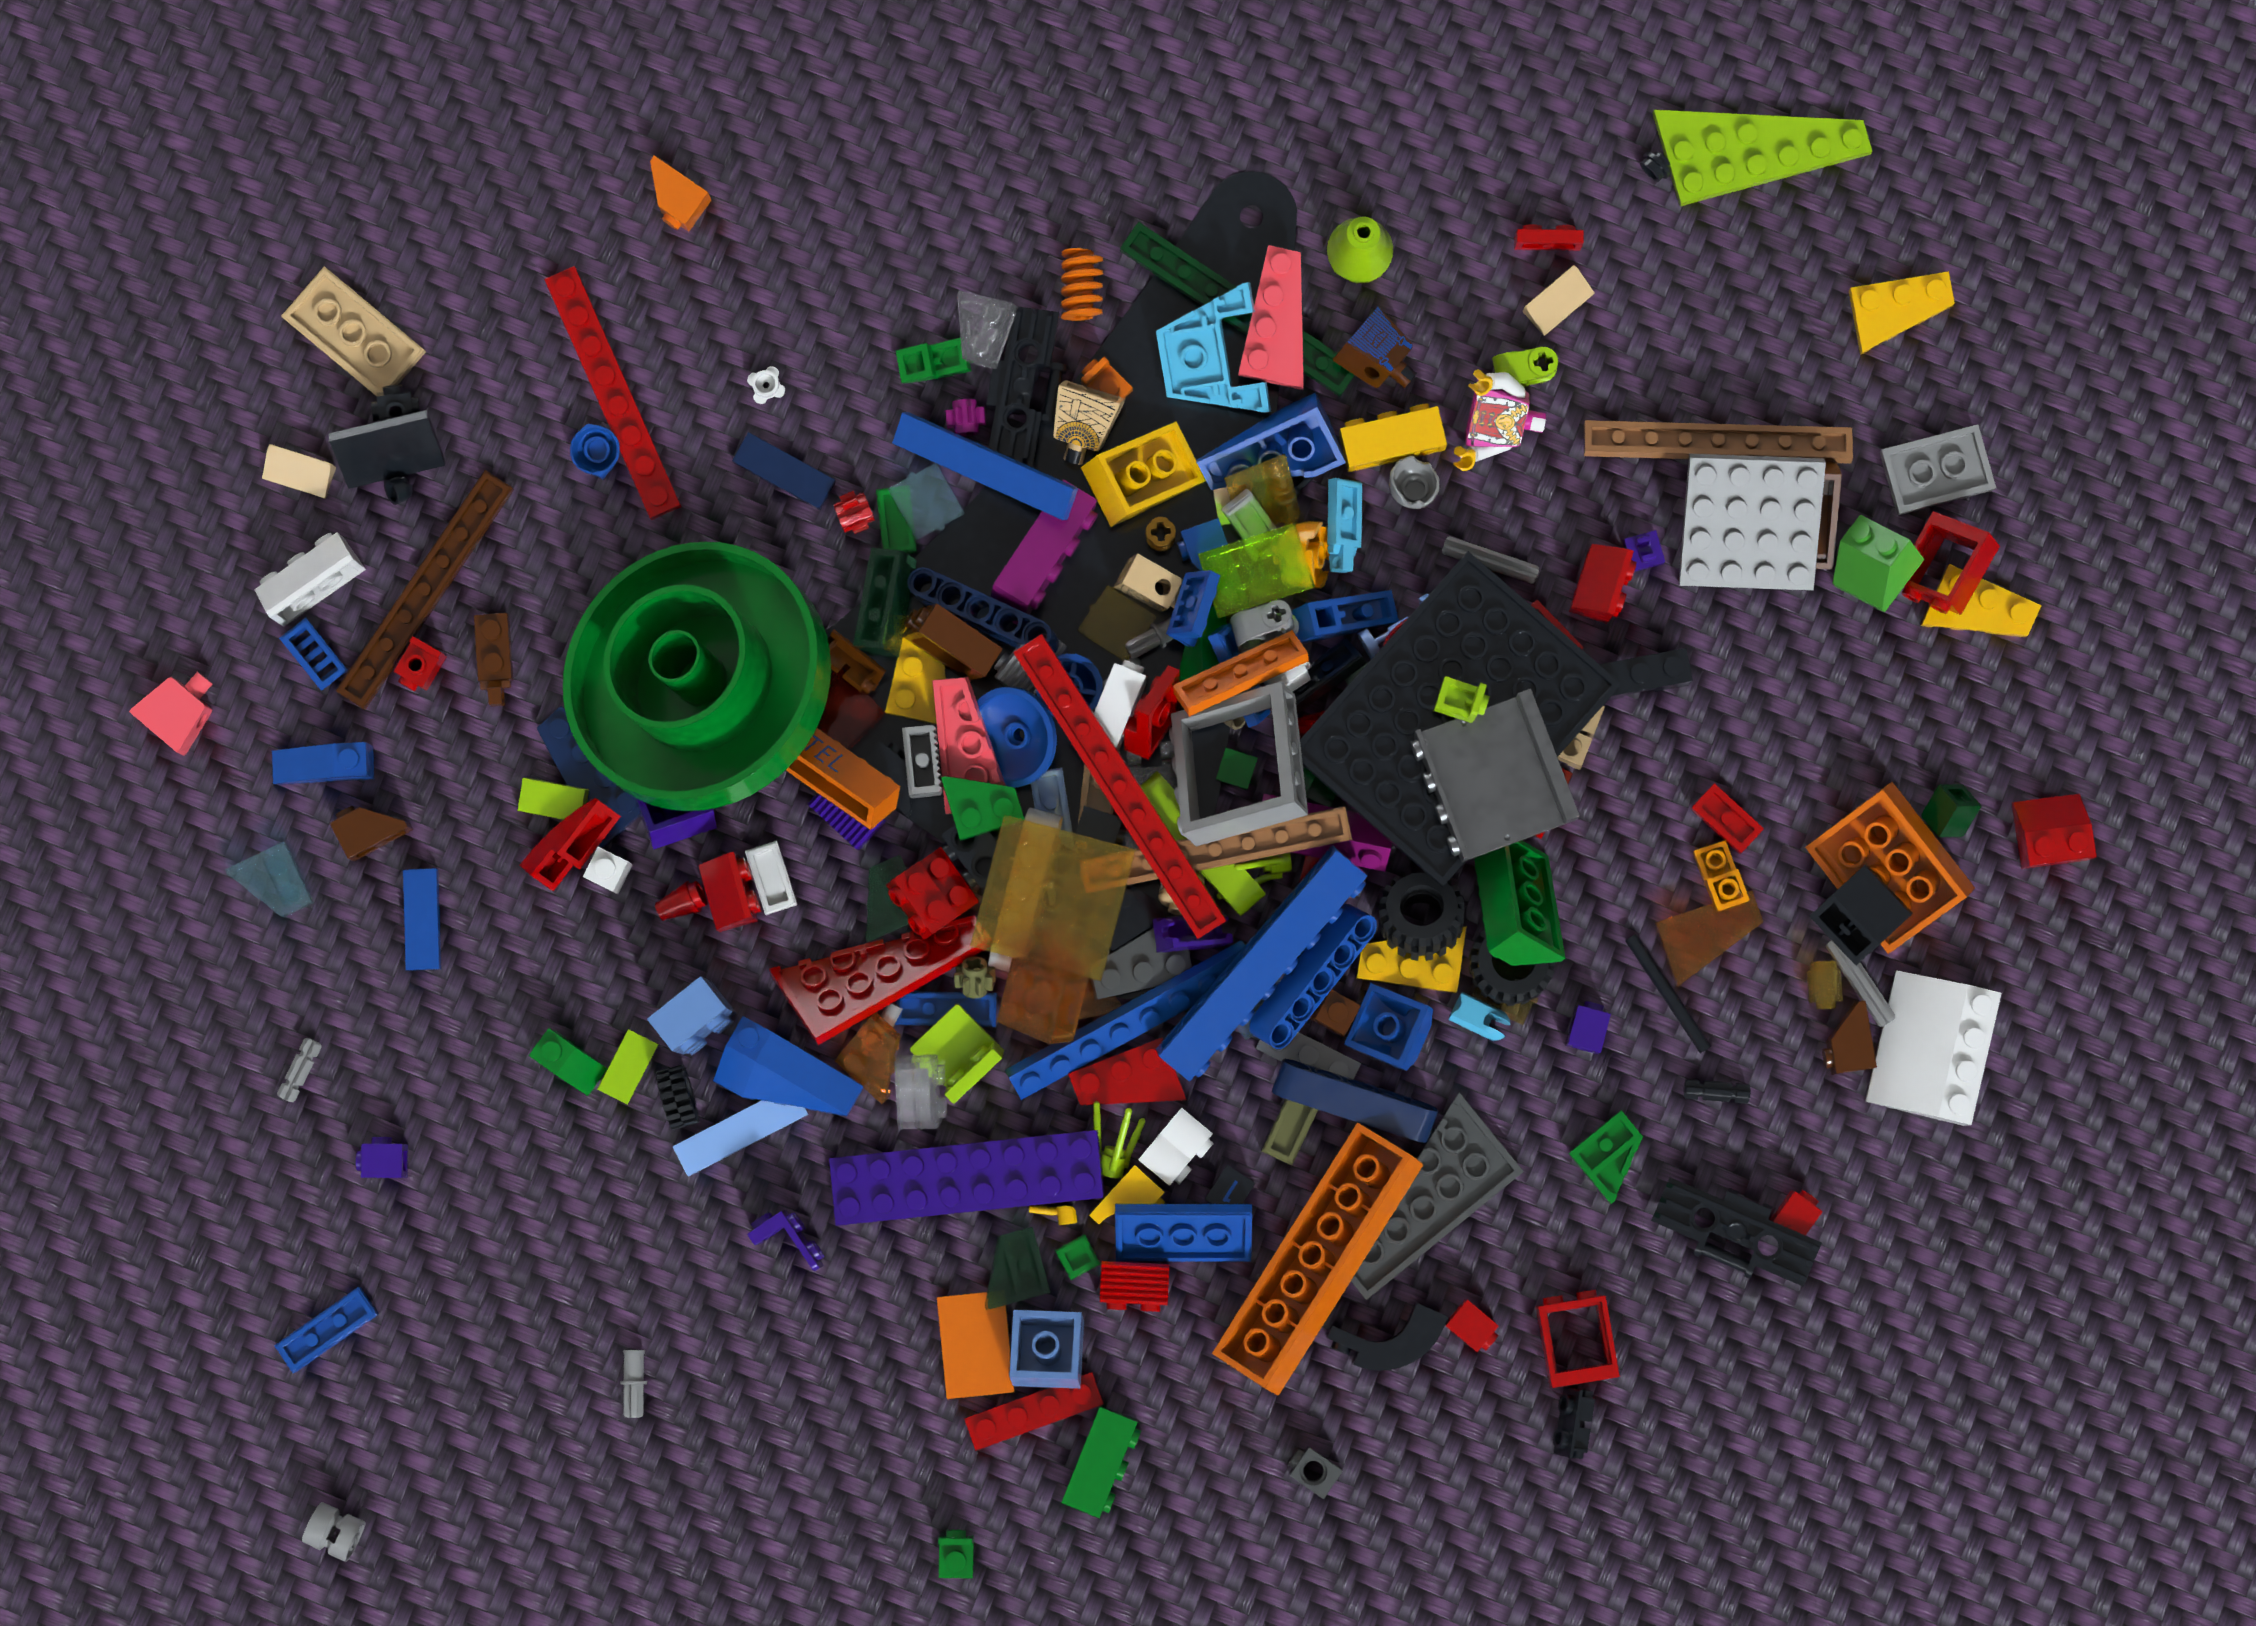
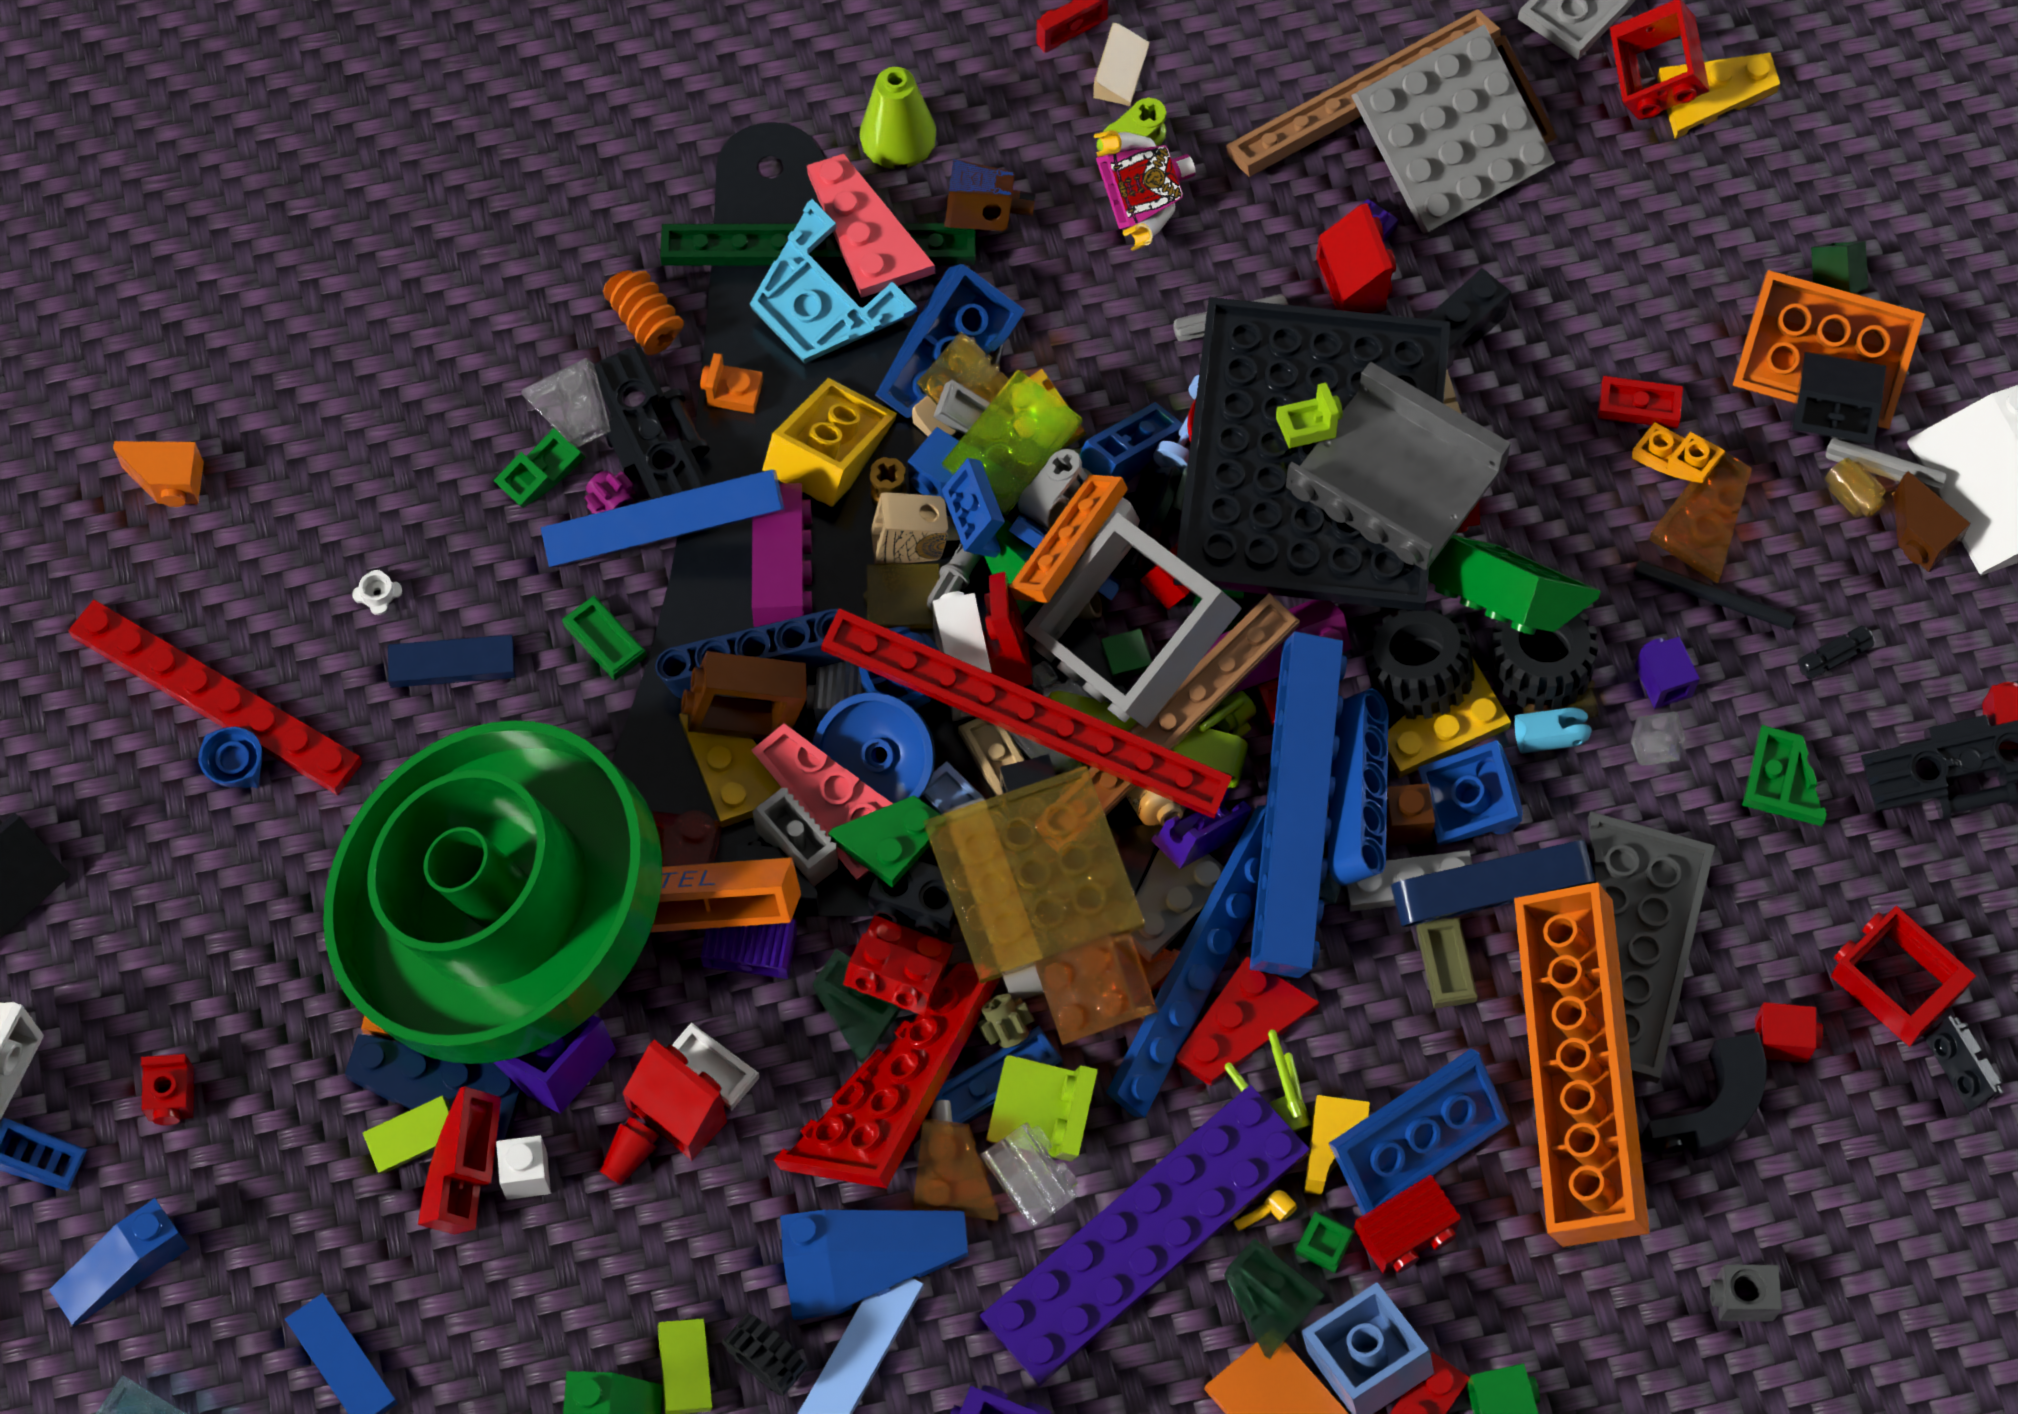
camera: 40 degrees left, 20 degrees down
(366, 831) = (216, 1300): reddish brown slope -> none
(398, 489) = (30, 929): black hinge -> none
(425, 589) = (125, 1017): reddish brown tile -> none
(494, 655) = (247, 1031): reddish brown hinge -> none
(692, 1017) = (725, 1247): medium blue brick -> none
(854, 512) = (553, 650): red gear -> none
(862, 670) = (664, 790): reddish brown hinge -> none
(884, 602) = (647, 711): clear green brick -> none
(926, 501) = (623, 598): clear light blue piece -> none
(1084, 419) = (734, 422): tan torso -> none
(1176, 1147) = (1345, 1054): white brick -> none
(1230, 1188) = (1431, 1052): black brick -> none
(1344, 523) = (1064, 367): medium azure hinge -> none
(1392, 437) = (1056, 265): yellow brick -> none
(1413, 483) = (1105, 291): light grey hair -> none
(1547, 1070) = (1658, 738): none -> clear slope
(1874, 563) = (1594, 96): bright green slope -> none
(2053, 831) = (1949, 229): red slope -> none

